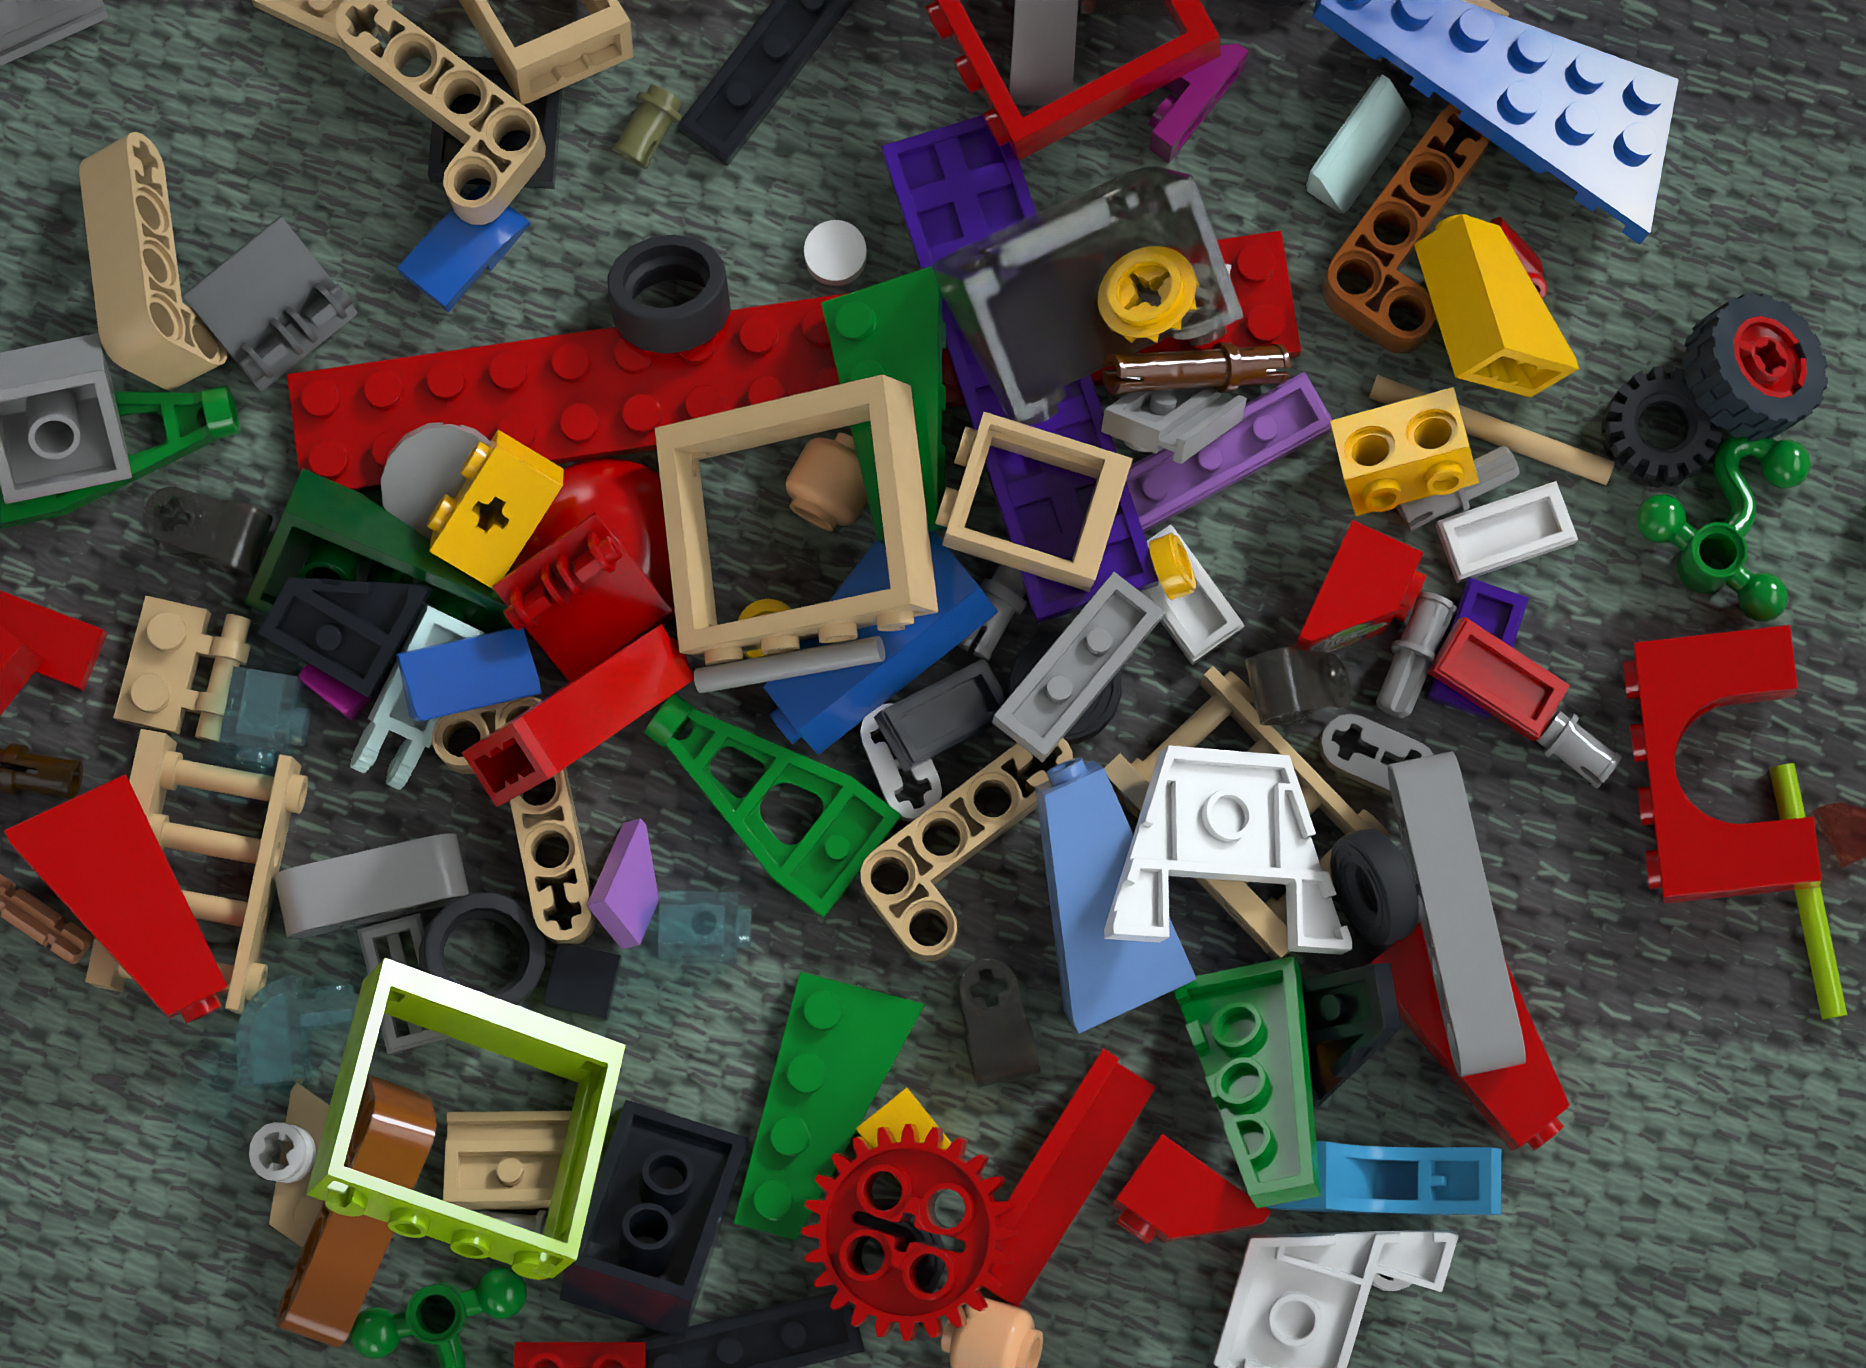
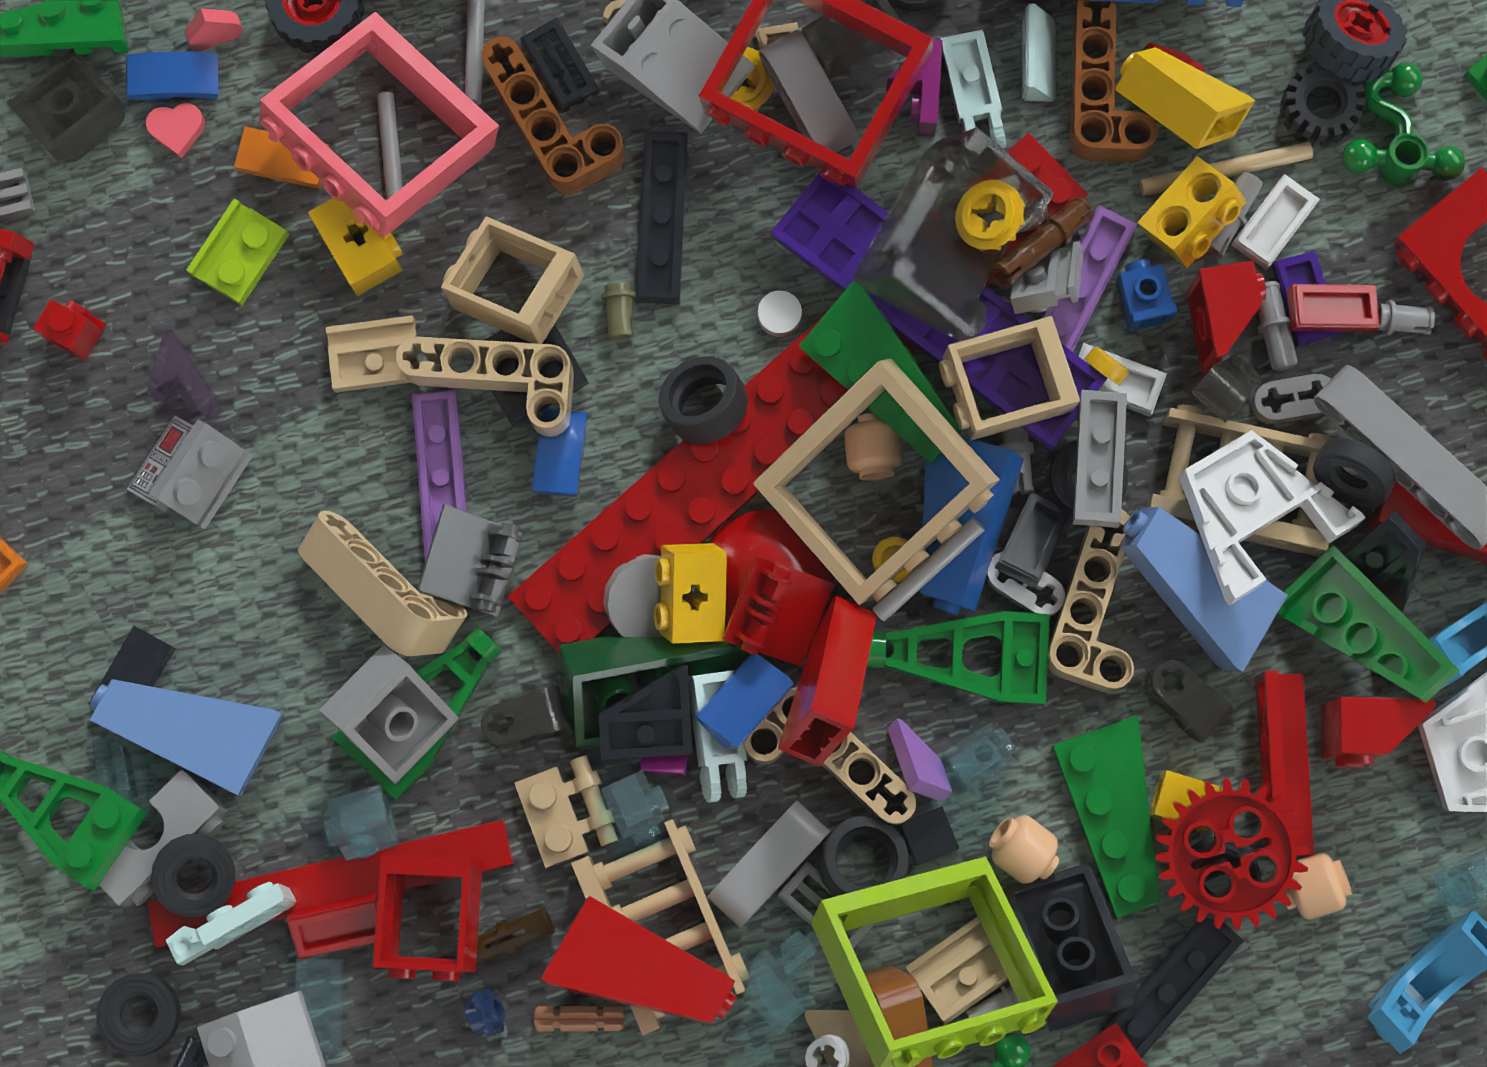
camera: 30 degrees left, 0 degrees up
(323, 157) = (438, 457): none -> medium lavender tile
(679, 1069) = (1024, 849): none -> light nougat head
(1254, 130) = (973, 82): none -> light aqua hinge
(1277, 536) = (1140, 309): none -> blue brick

